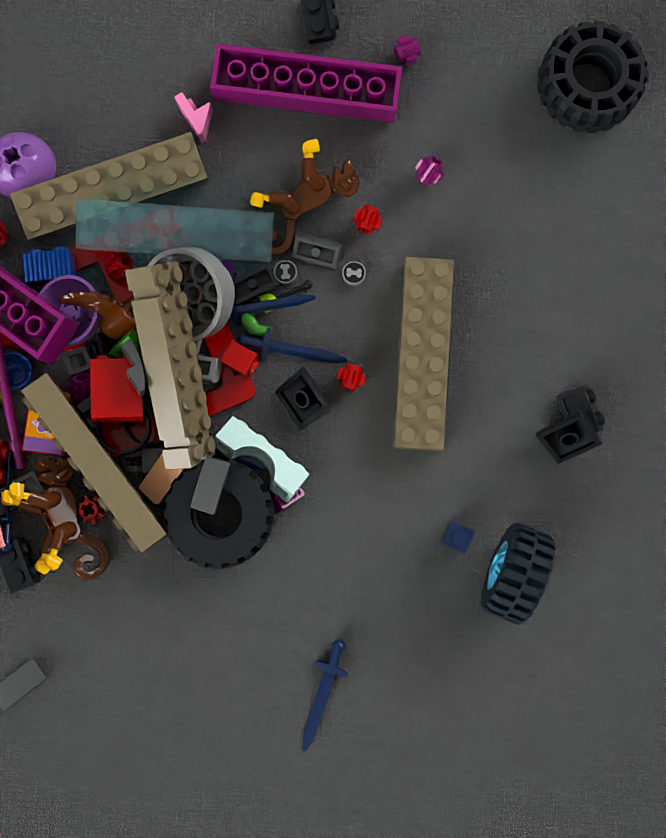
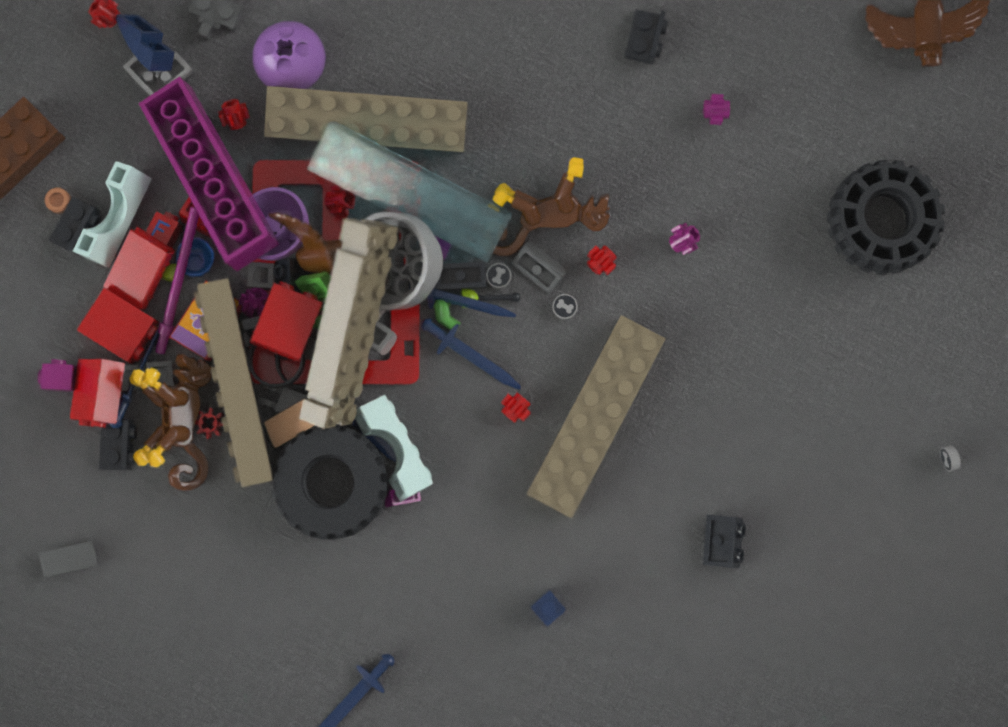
camera: 20 degrees right, 0 degrees up
(43, 267) = (271, 170): blue brick -> none
(135, 373) = (312, 317): dark grey slope -> none
(198, 119) = (480, 89): bright pink slope -> none
(210, 485) = (334, 452): dark grey slope -> none
(240, 359) = (416, 343): red brick -> none
(303, 398) = (459, 407): black slope -> none
(305, 83) = (601, 99): magenta brick -> none
(518, 573) = (587, 667): black wheel -> none
(570, 437) = (700, 560): black slope -> none

